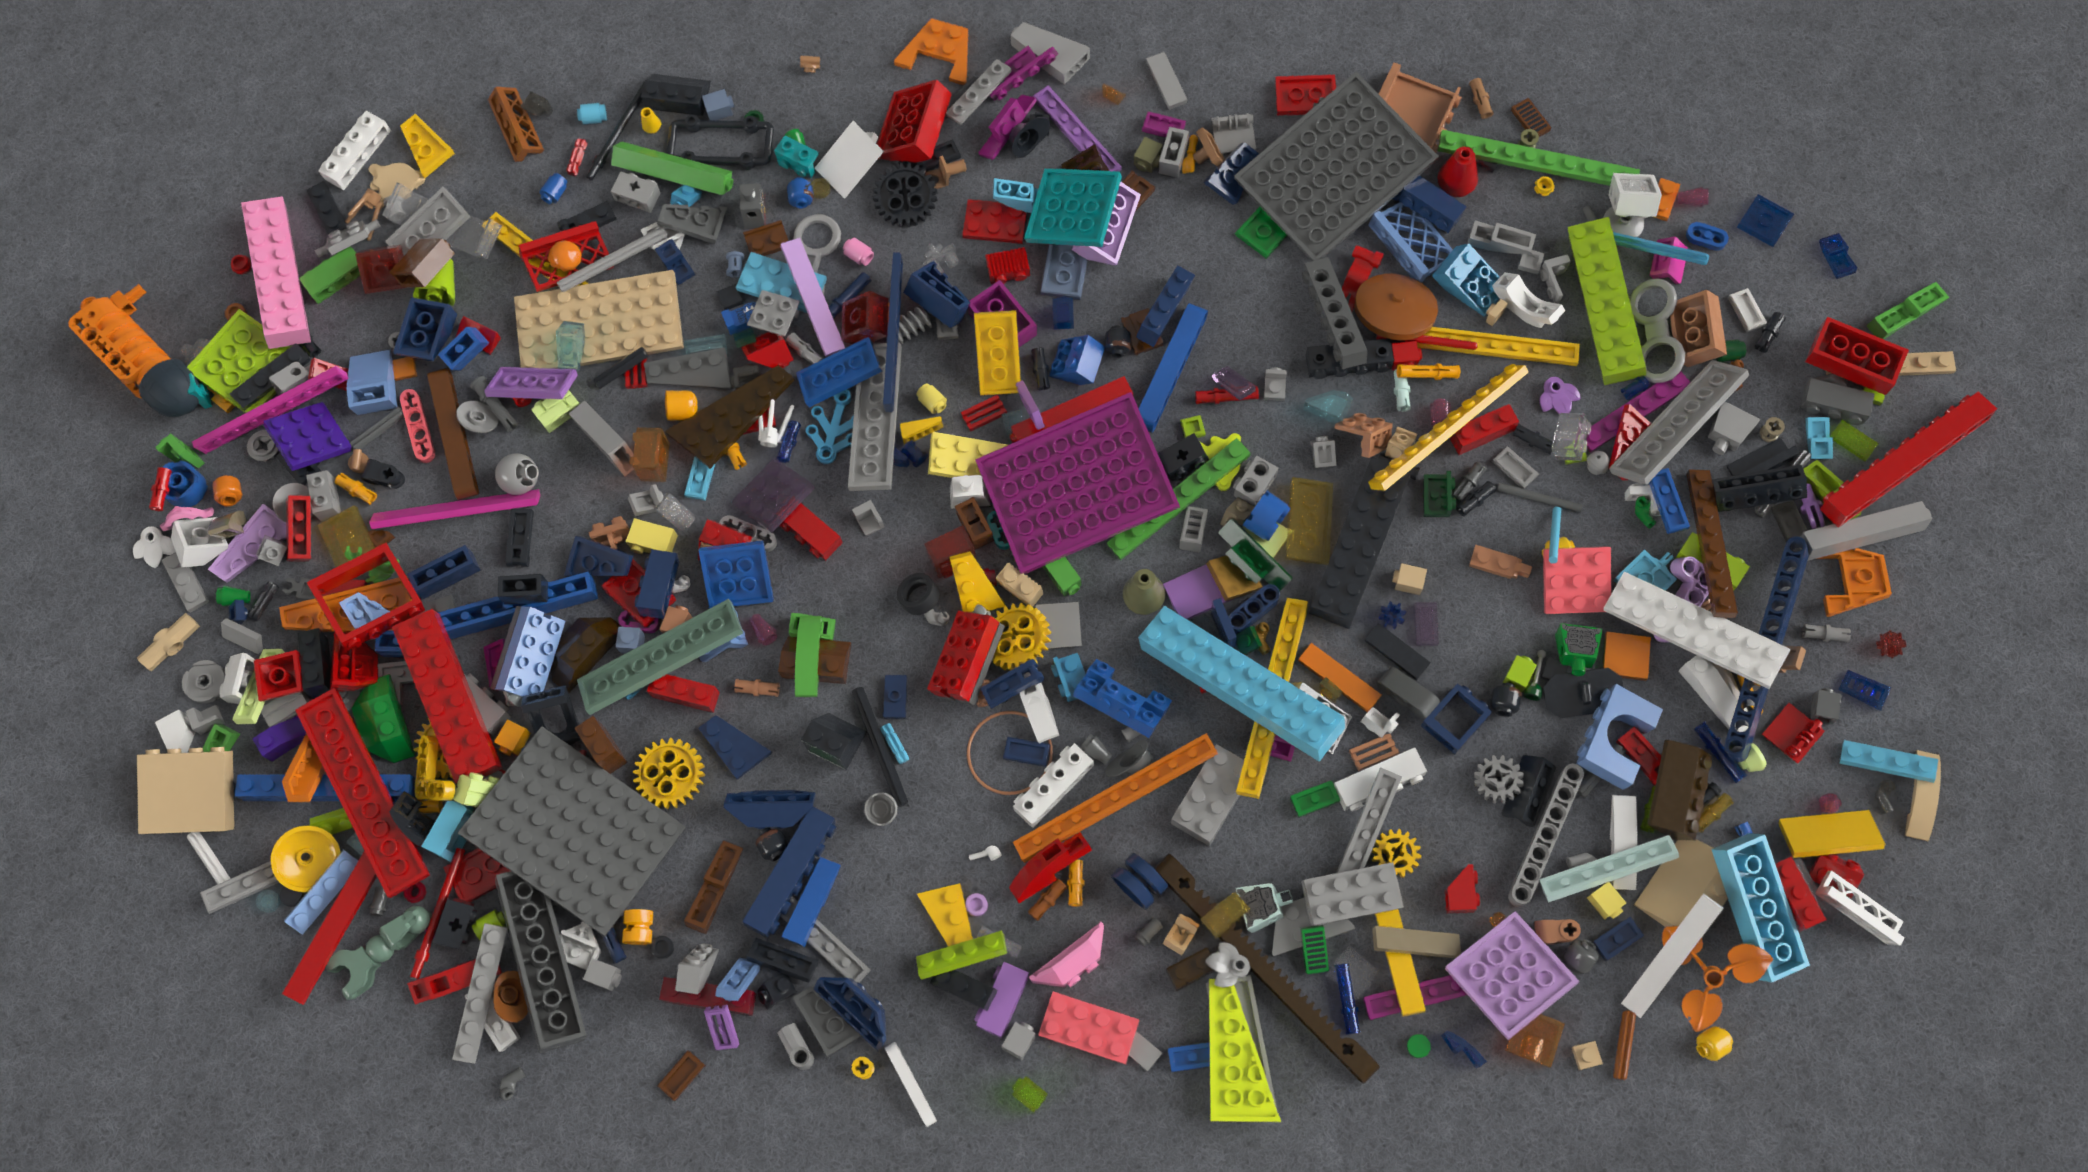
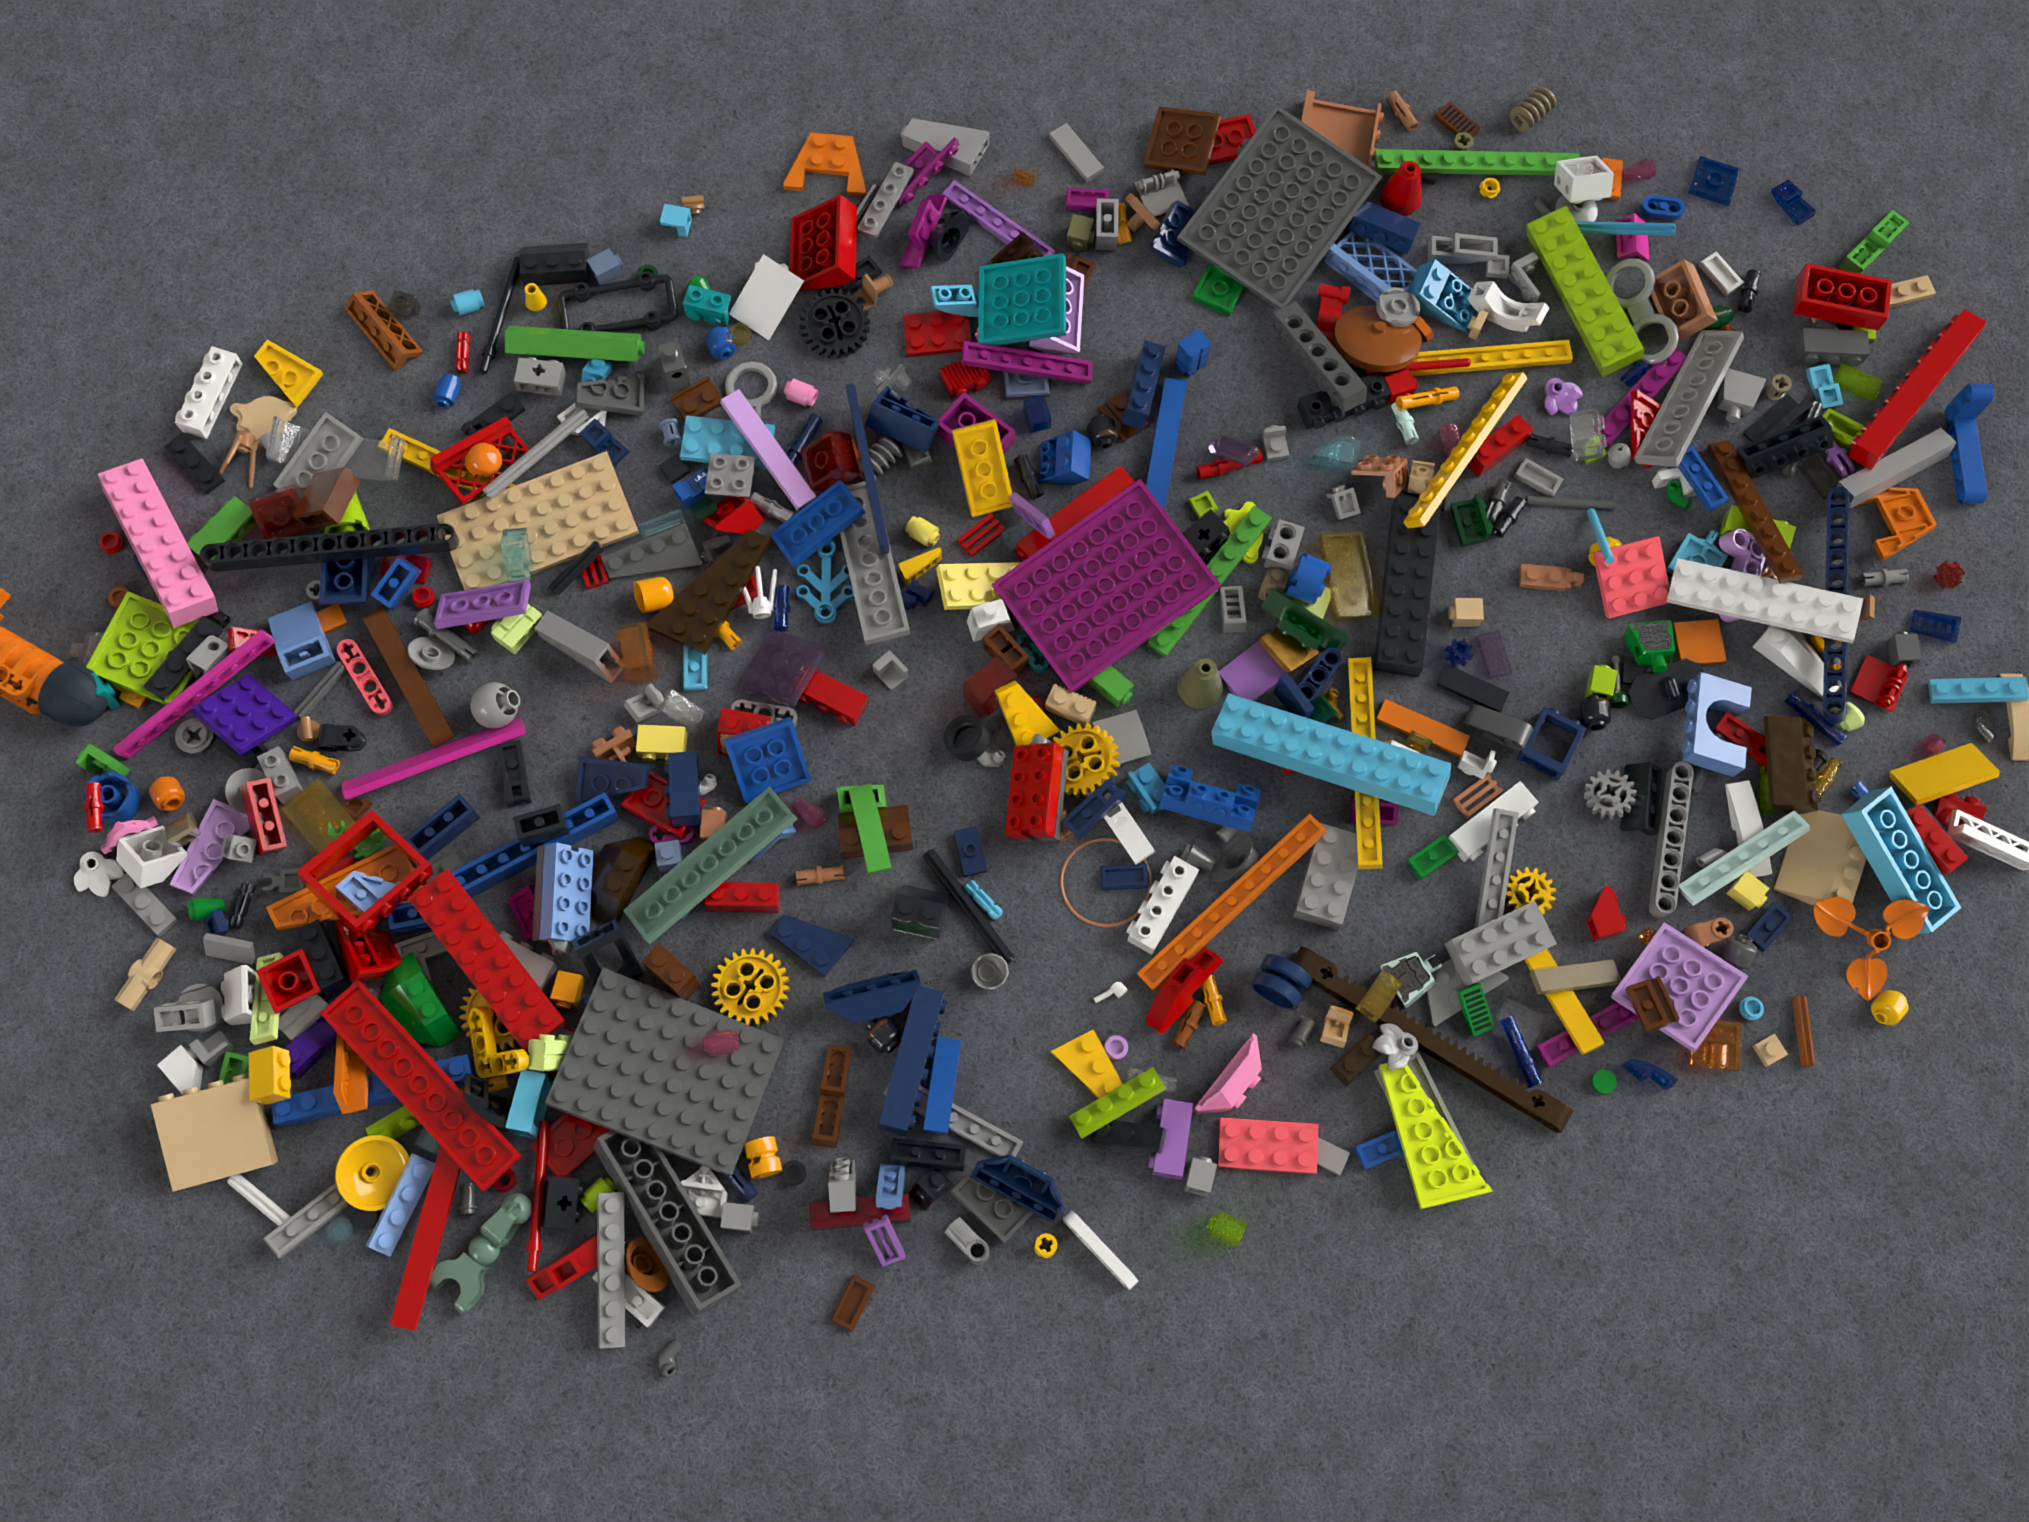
camera: 25 degrees left, 0 degrees up
(187, 685) = (184, 1015): none -> light grey brick
(240, 753) = (269, 1075): none -> yellow brick
(342, 239) = (229, 488): light grey plate -> none
(405, 301) = (320, 542): none -> black beam
(485, 365) = (423, 597): none -> red plate
(625, 816) = (720, 1042): none -> clear pink brick
(793, 73) = (676, 217): none -> medium azure panel
(1065, 264) = (1026, 362): none -> magenta plate
(1218, 286) = (1192, 353): none -> blue brick
(1264, 88) = (1182, 140): none -> reddish brown plate
(1421, 281) = (1397, 307): none -> light grey tile
(1443, 305) = (1424, 329): none -> orange tile
(1478, 985) = (1652, 1004): none -> reddish brown plate
(1579, 1011) = (1751, 1008): none -> medium azure plate
(1605, 119) = (1532, 109): none -> dark tan piece
(1672, 955) = (1830, 929): white tile -> none
(1942, 529) = (1966, 454): none -> blue beam

